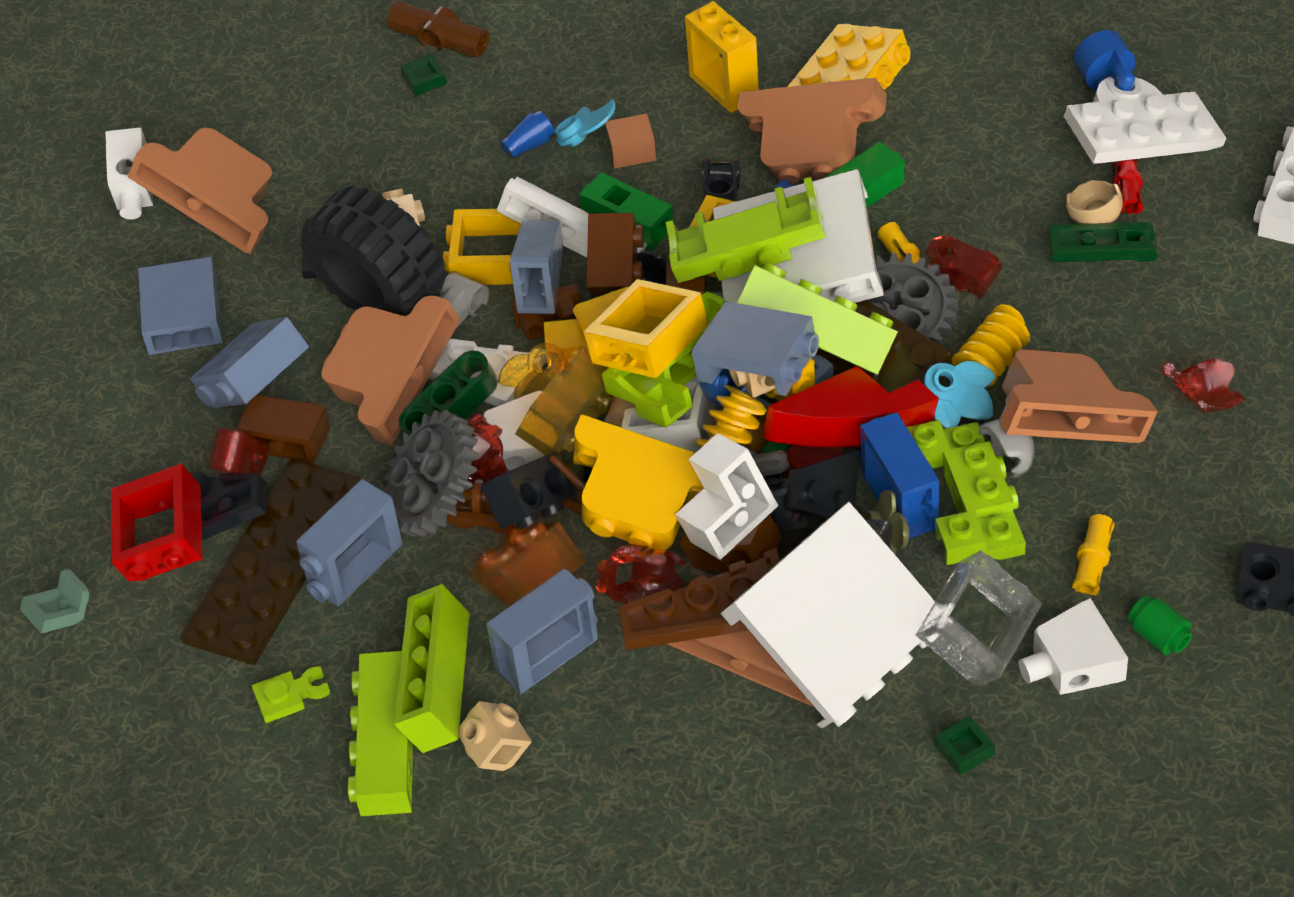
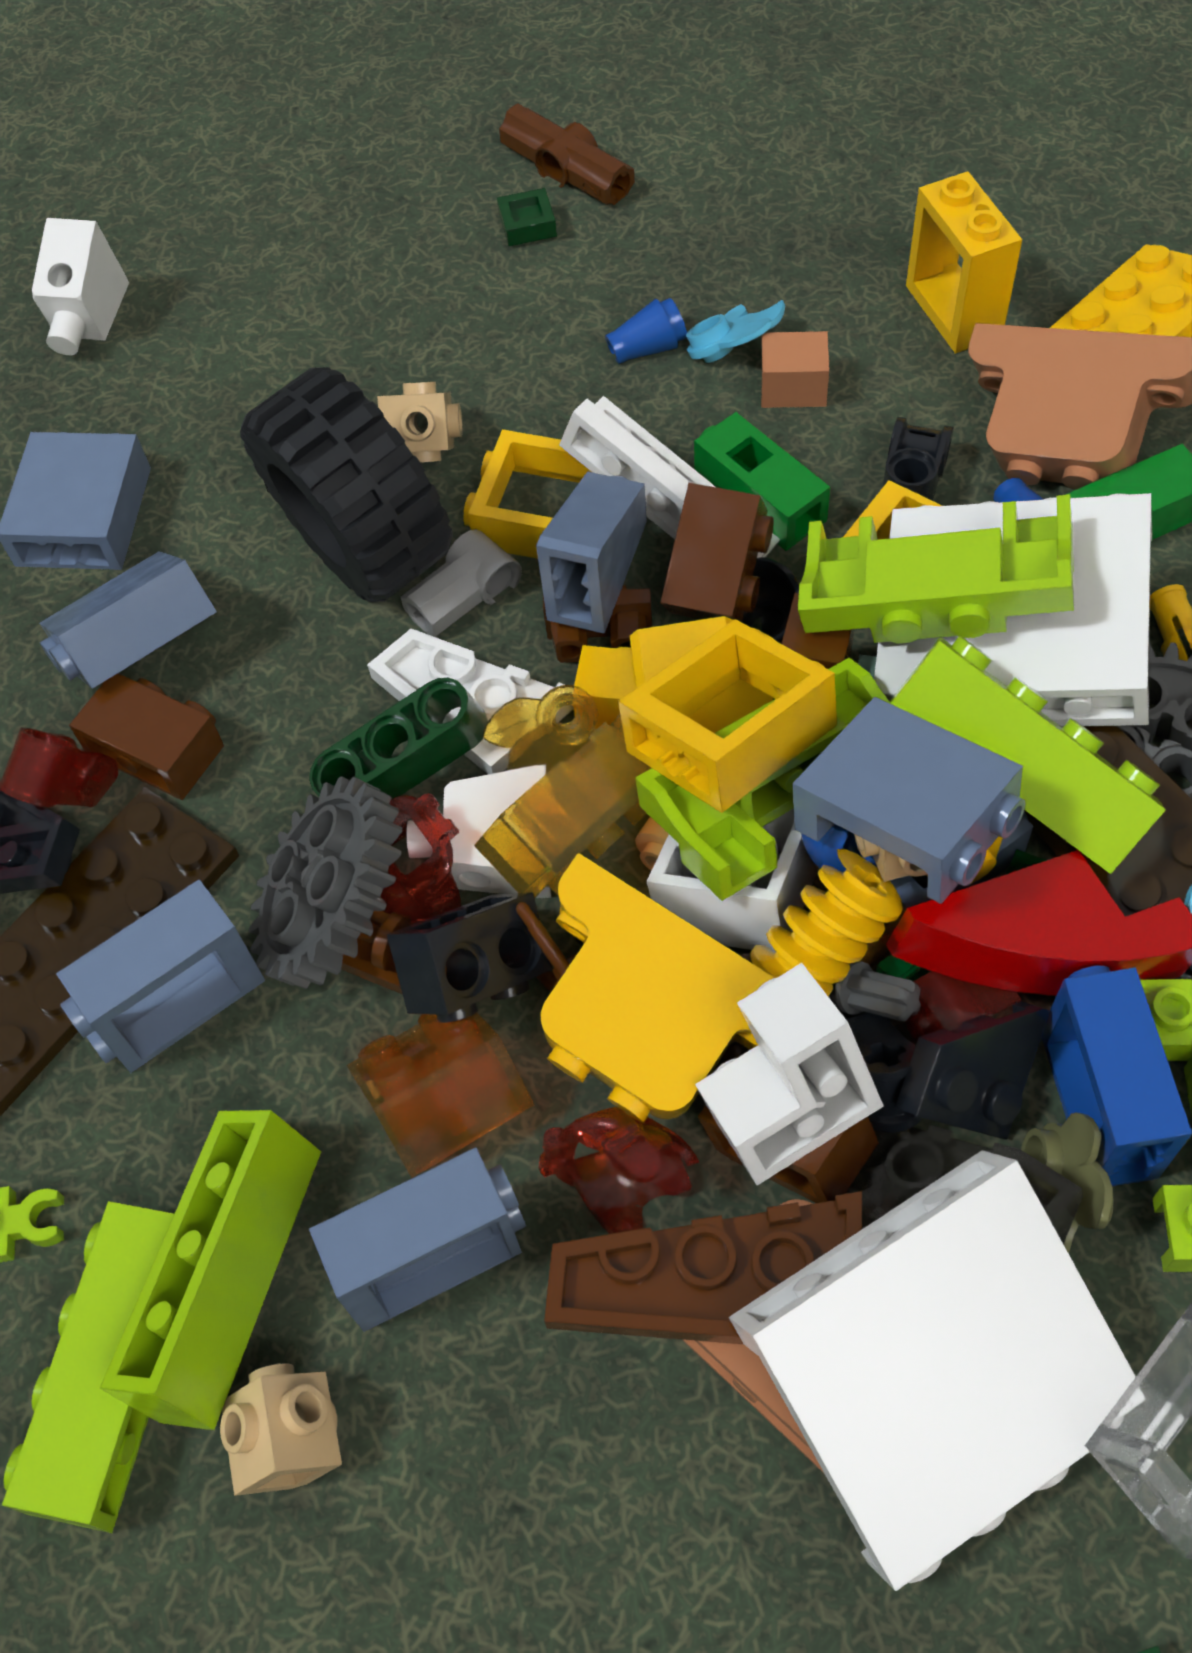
camera: 15 degrees right, 10 degrees up
(210, 183) = (171, 320): nougat brick -> none
(388, 360) = (330, 659): nougat brick -> none

